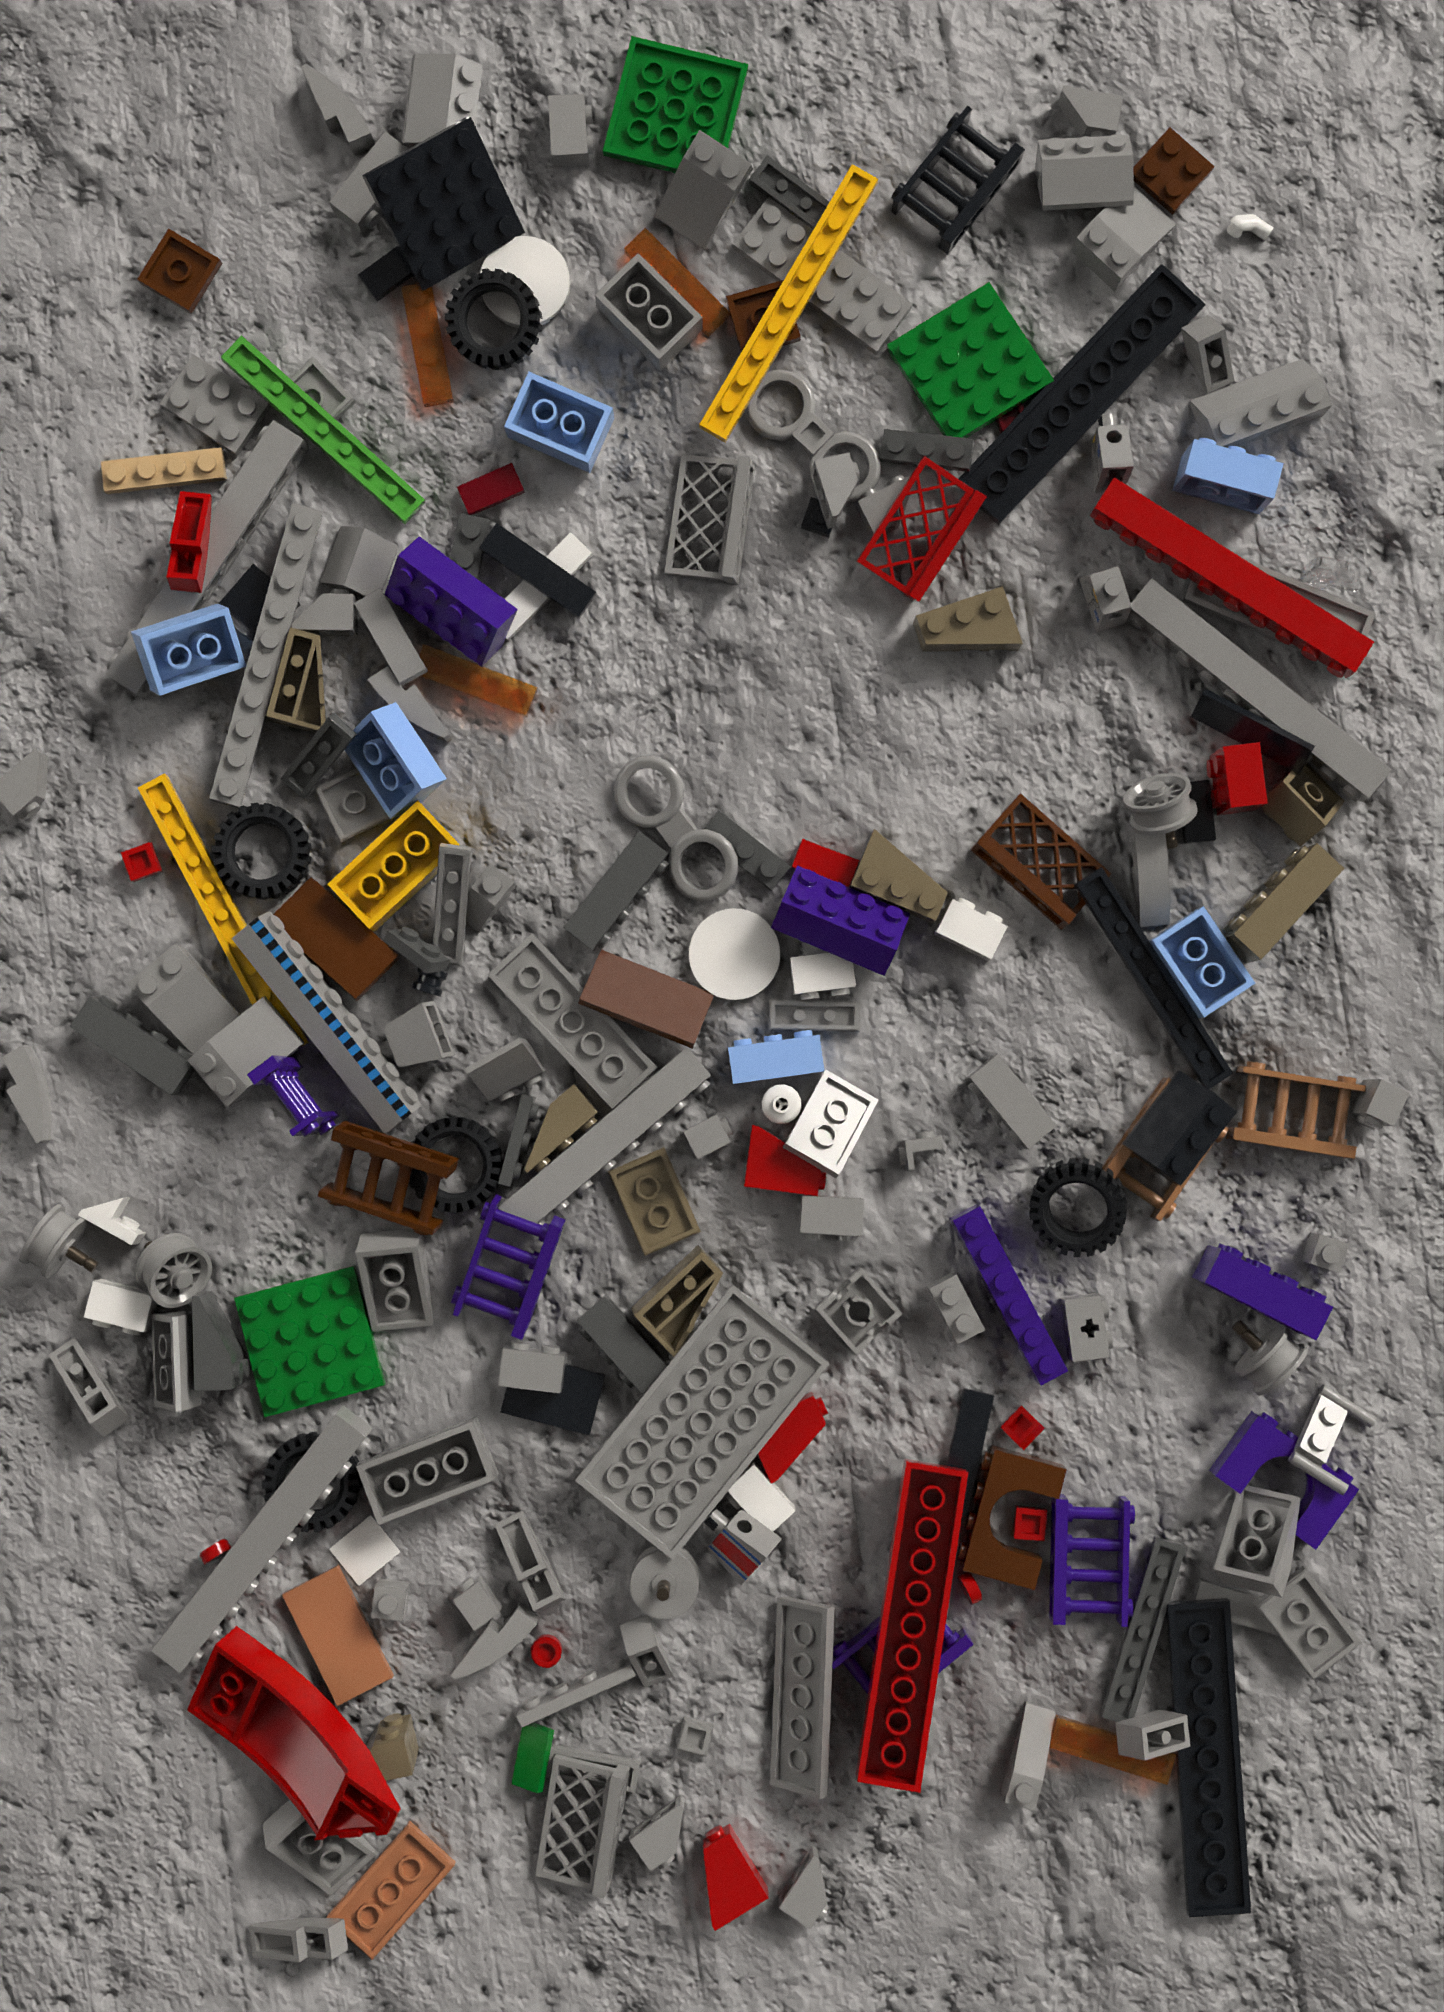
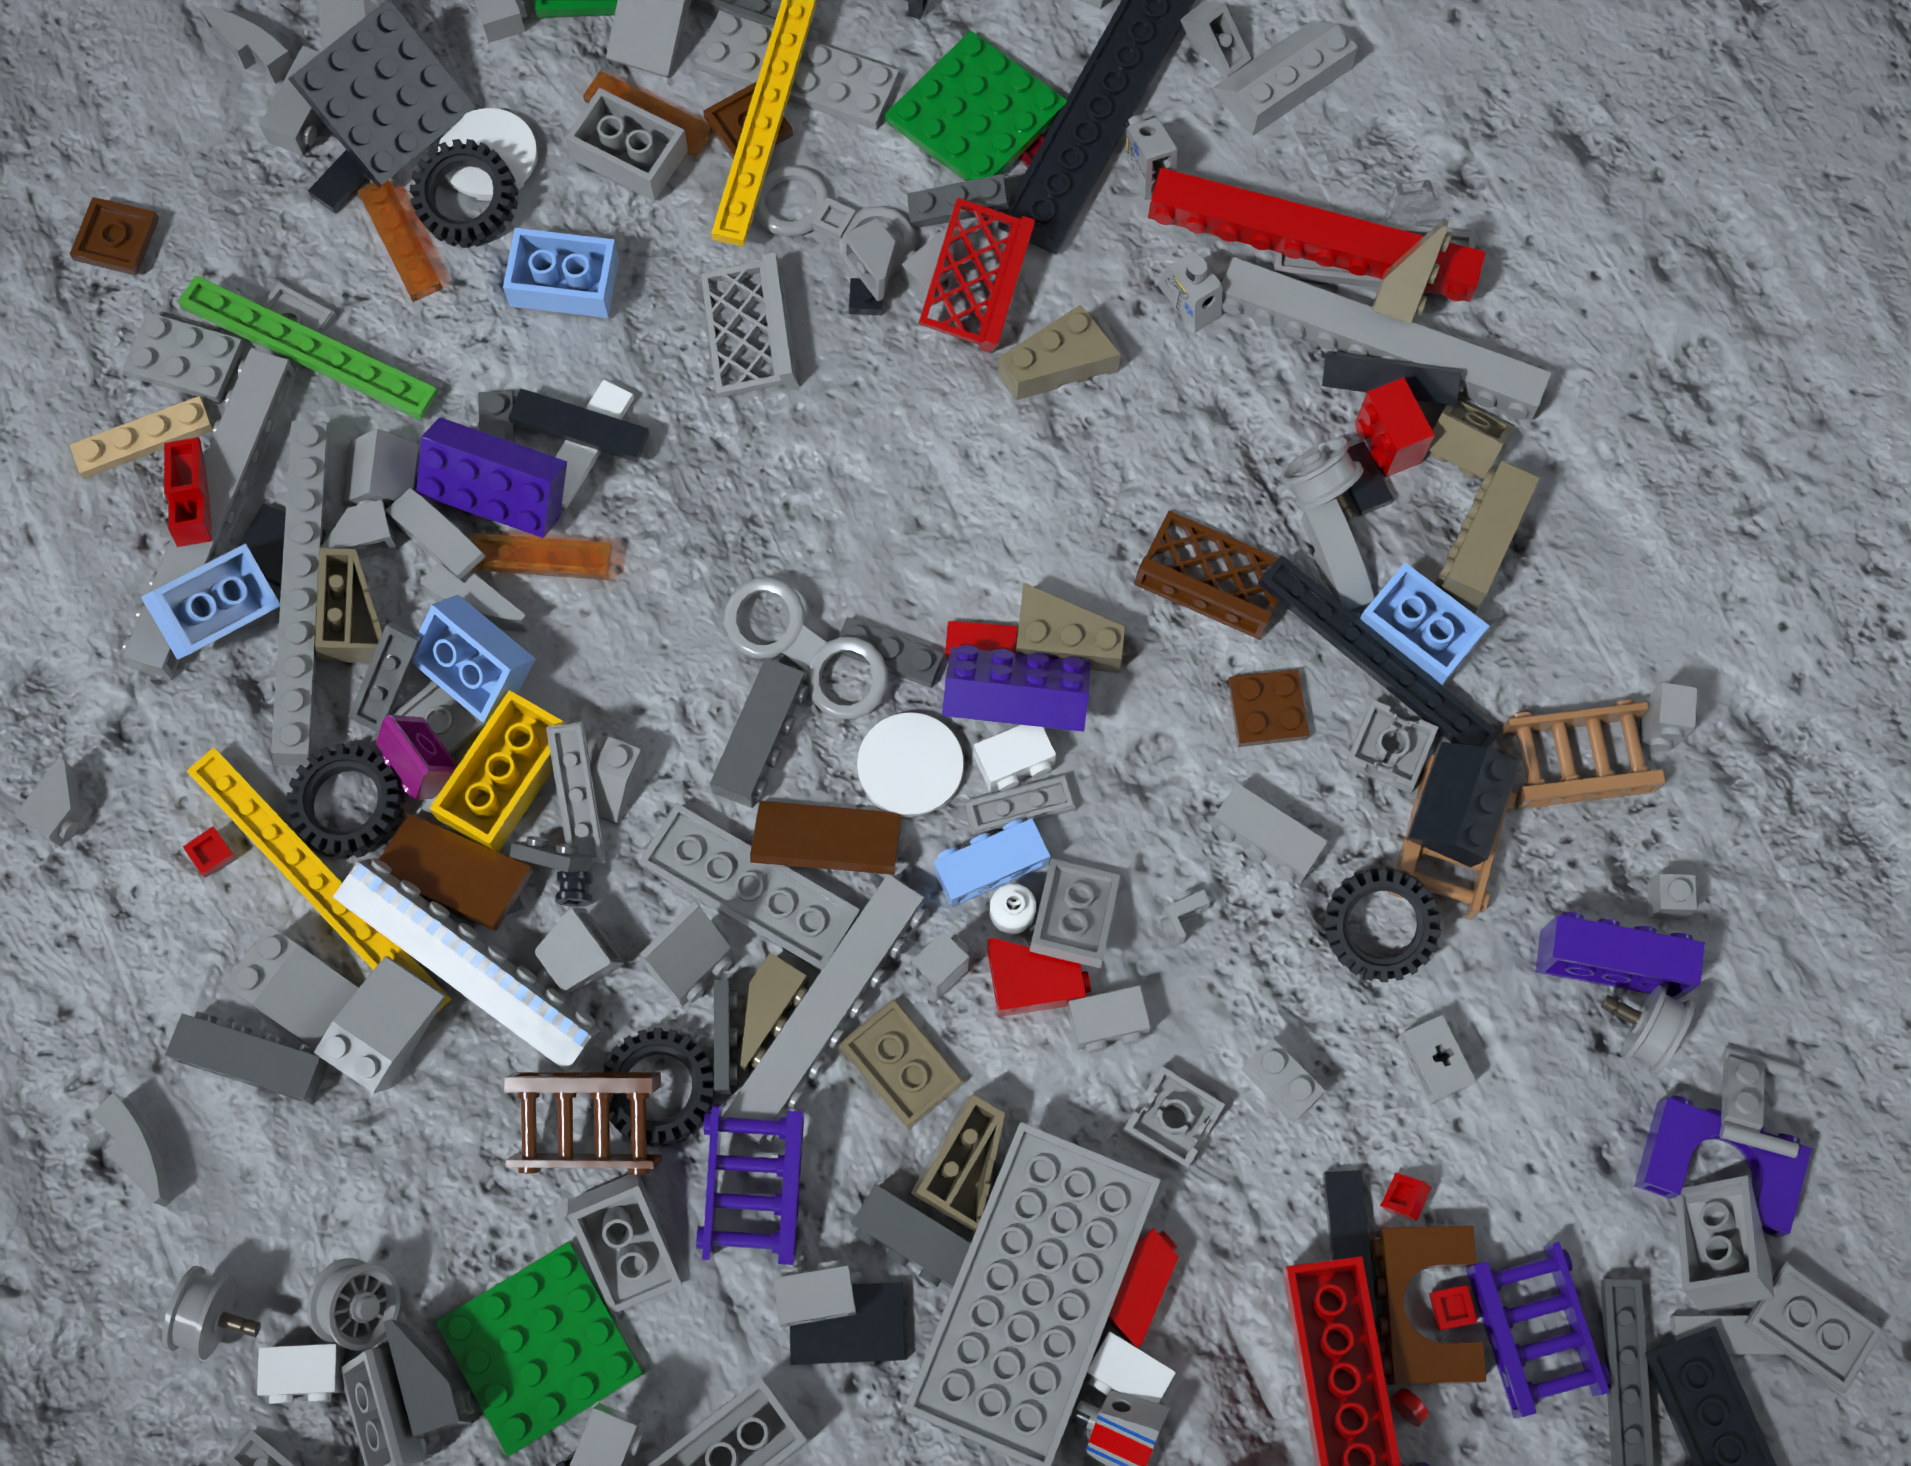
camera: 15 degrees left, 15 degrees down
(107, 1217) = (259, 1267): white slope -> none
(282, 1076) = (429, 1036): dark purple fence -> none
(329, 833) = (415, 755): none -> magenta slope
(490, 489) = (505, 361): dark red tile -> none
(971, 929) = (1162, 663): white brick -> none
(1008, 1294) = (1338, 1047): dark purple brick -> none
(1047, 992) = (1268, 708): none -> reddish brown plate
(1117, 1055) = (1368, 753): none -> light grey brick
(1228, 475) = (1276, 141): light blue brick -> none
(1294, 649) = (1406, 279): none -> dark tan slope

